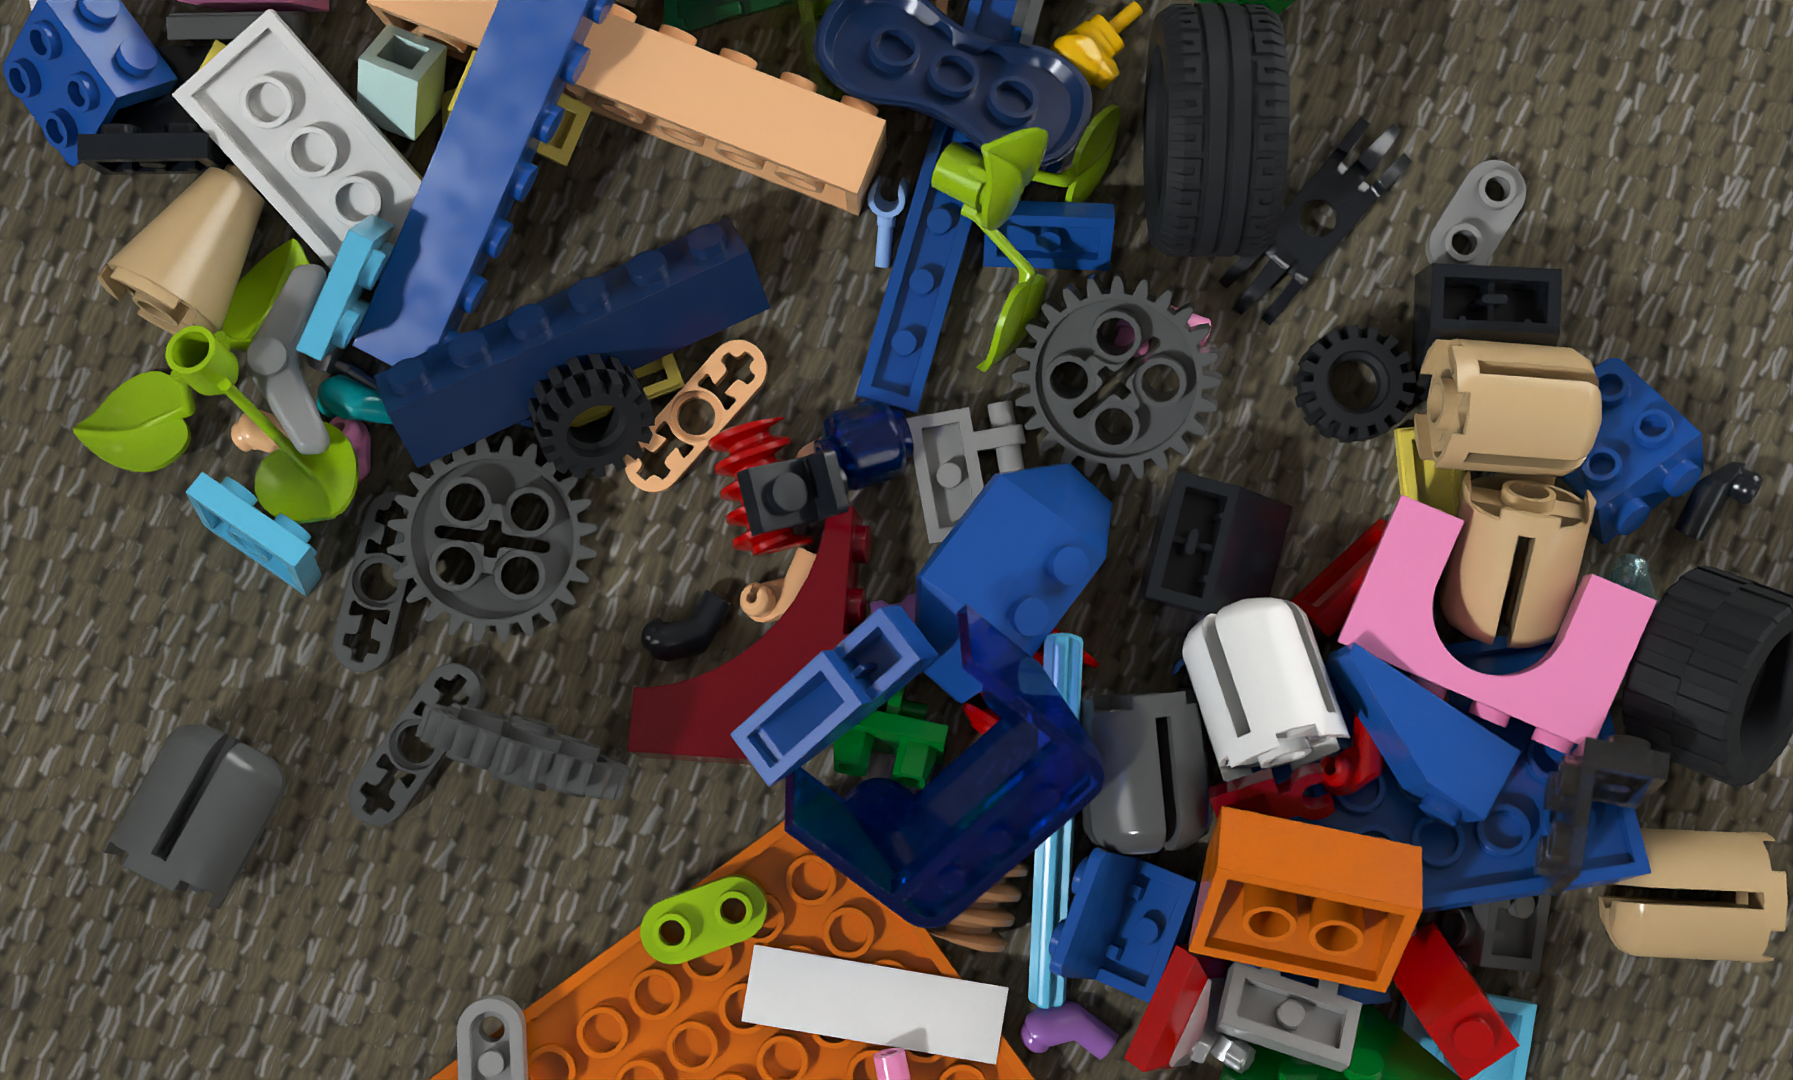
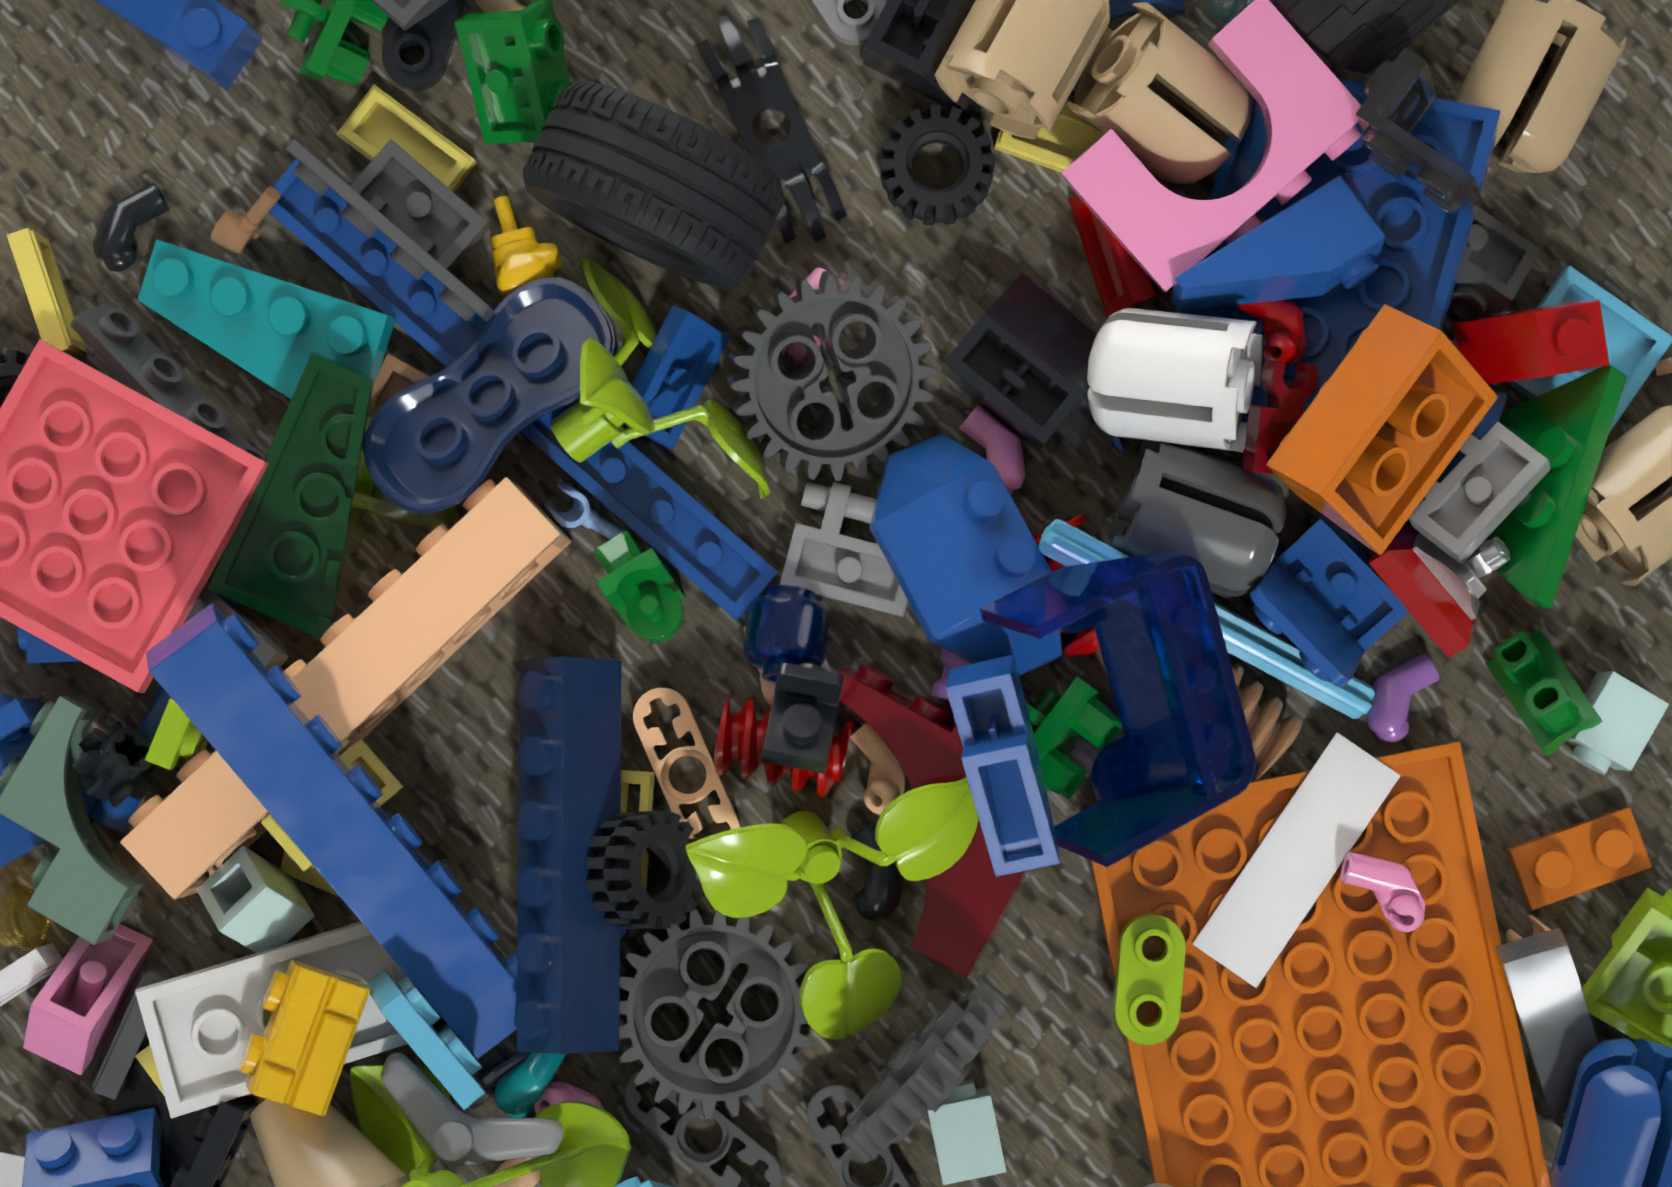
camera: 65 degrees left, 0 degrees up
(299, 180) = (305, 1036): none -> yellow brick
(487, 818) = (967, 1135): none -> light aqua brick
(634, 507) = (749, 869): none -> lime plant
(843, 293) = (640, 589): none -> green hips
(1127, 561) = (1001, 446): none -> bright pink arm

